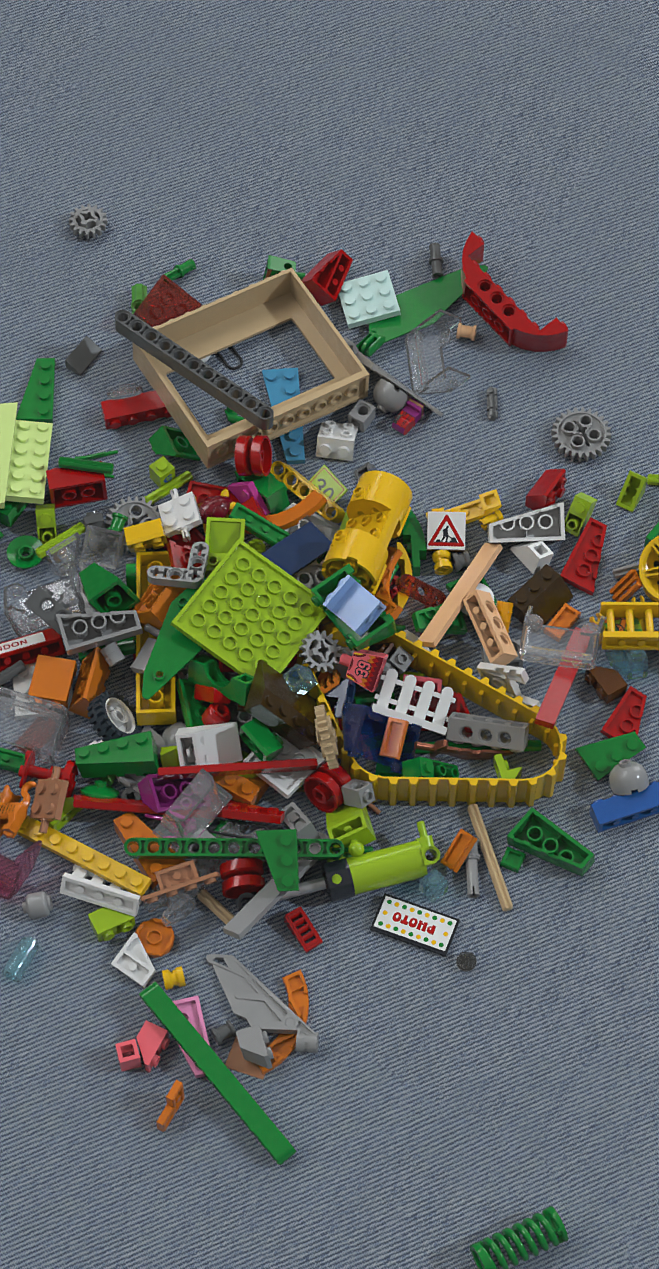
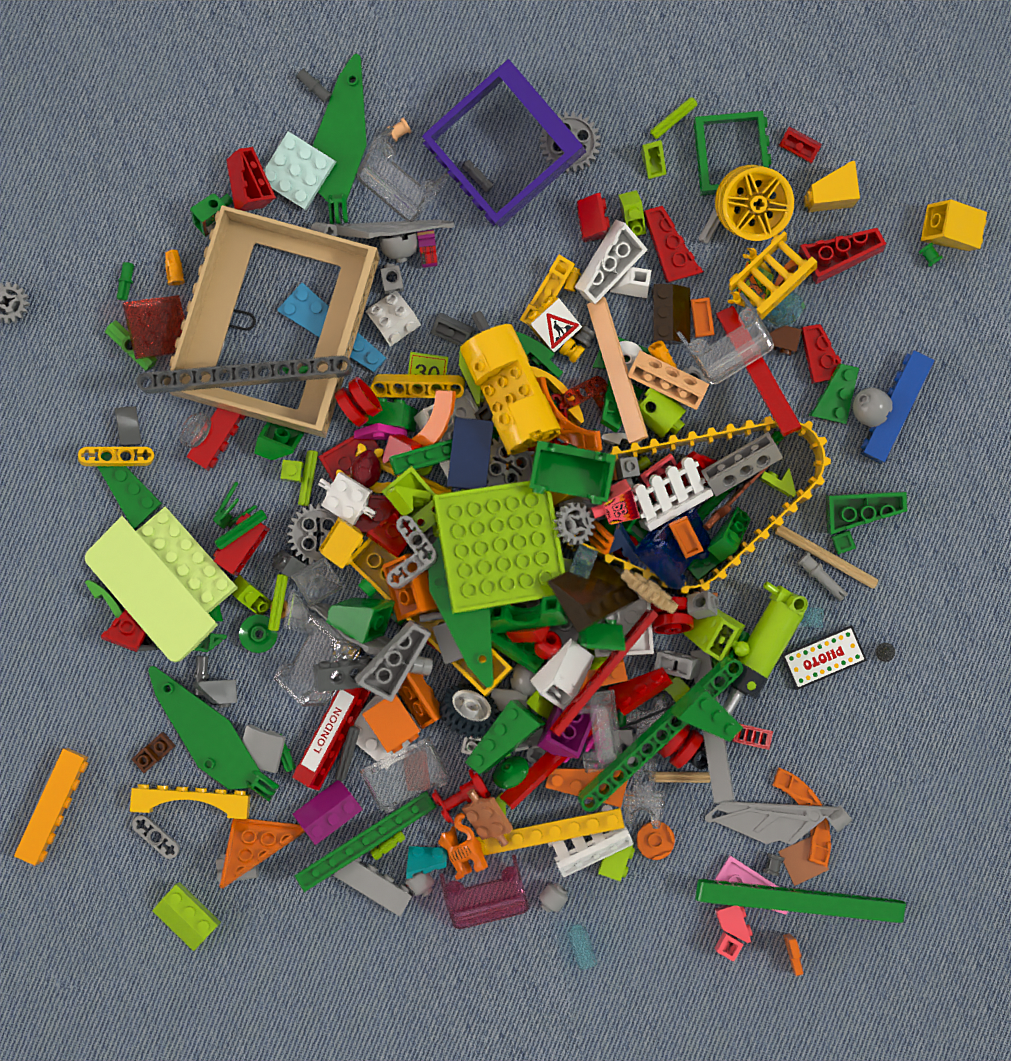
camera: 45 degrees left, 25 degrees up
(56, 362) = (115, 453): none -> yellow beam
(118, 522) = (310, 552): green bush -> none
(134, 961) = (662, 873): white wing -> none
(173, 978) = (700, 859): yellow wheel -> none
(177, 878) = (641, 792): nougat bracket -> none
(219, 531) = (406, 498): none -> lime slope
(220, 289) = (174, 268): none -> light orange hinge
(254, 1047) = (807, 857): light grey slope -> none
(354, 605) = (574, 468): light blue panel -> none
(458, 850) = (804, 574): orange tile -> none
(464, 646) = (666, 415): none -> lime cylinder
(501, 311) = (371, 83): red slope -> none
(507, 676) = (720, 411): white wing -> none
(532, 433) = (541, 112): none -> dark purple door
(625, 585) = (722, 258): orange tile -> none

